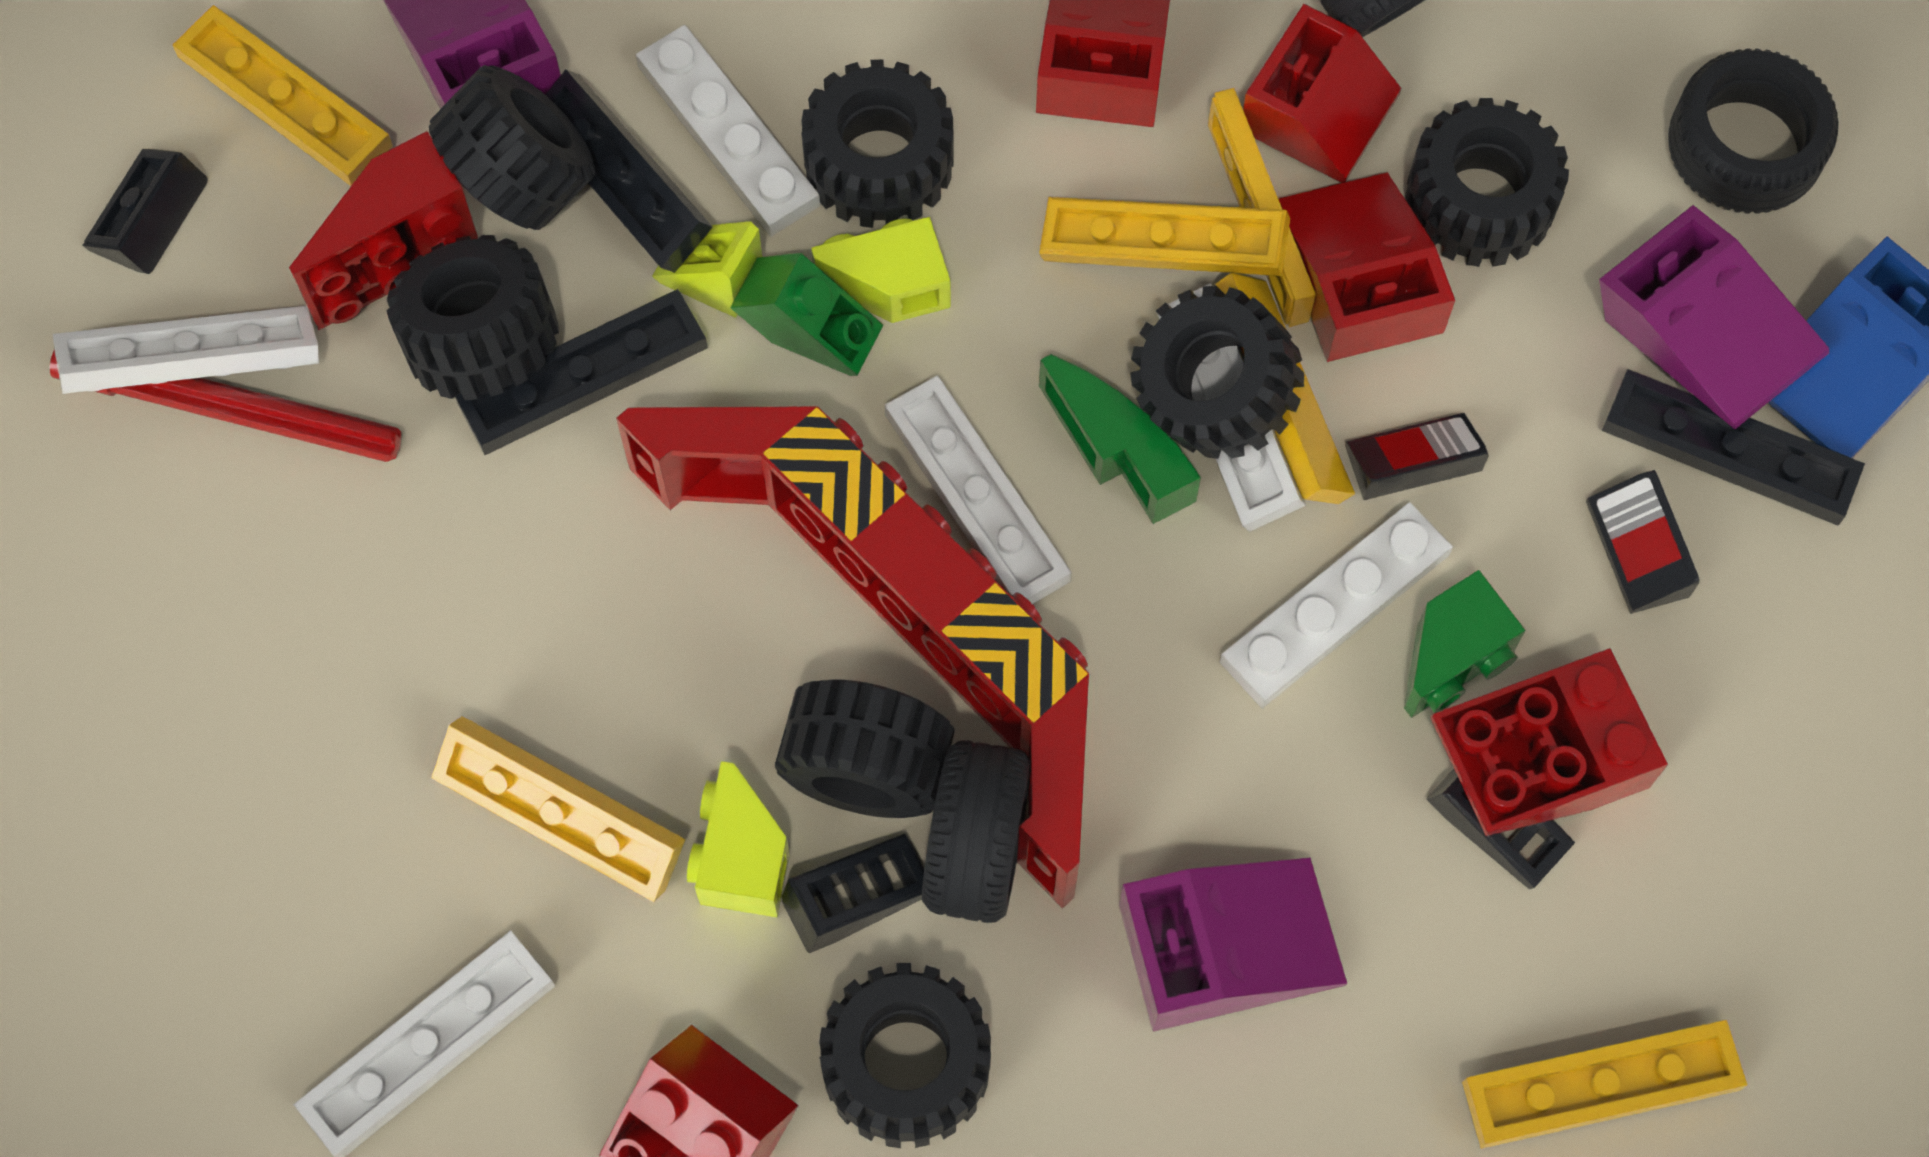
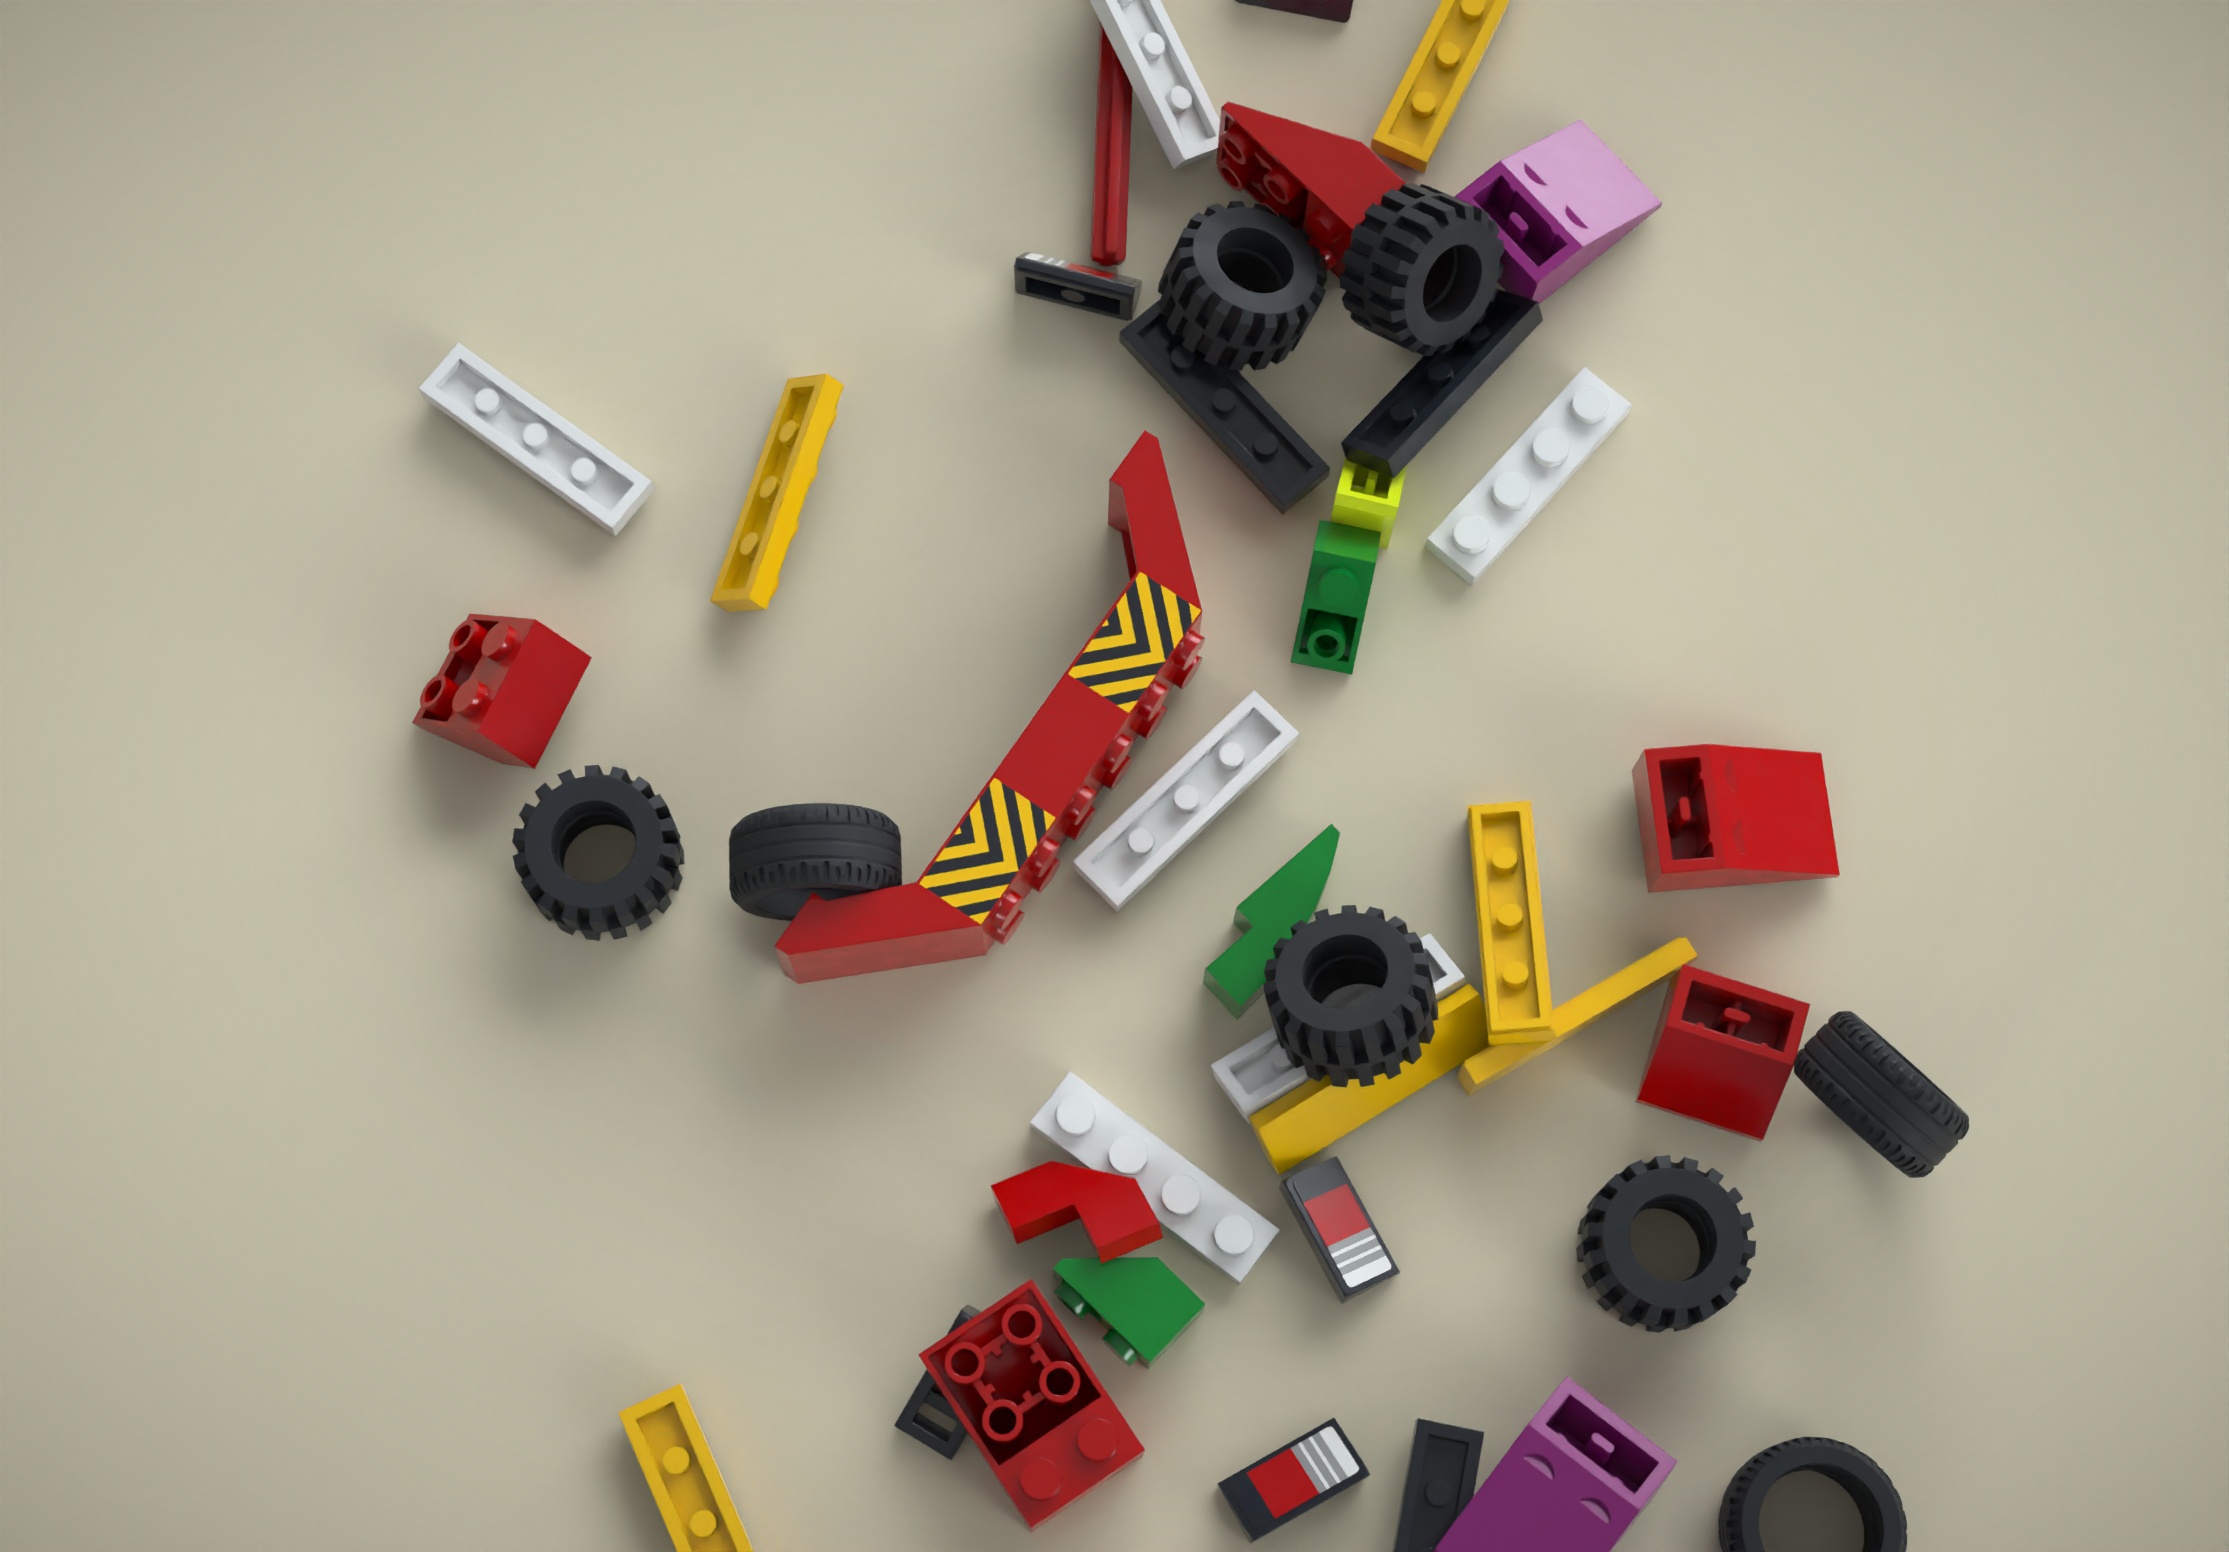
camera: 75 degrees right, 5 degrees up
(413, 479) = (1076, 285): none -> black slope
(743, 849) = (773, 665): neon yellow slope -> none
(820, 882) = (746, 727): black slope -> none
(864, 748) = (877, 738): black tyre -> none
(878, 101) = (1551, 571): black tyre -> none
(889, 270) = (1406, 666): neon yellow slope -> none
(1229, 939) = (772, 1132): magenta slope -> none
(1341, 686) = (1058, 1193): none -> red tile
(1369, 267) = (1537, 1130): red slope -> none

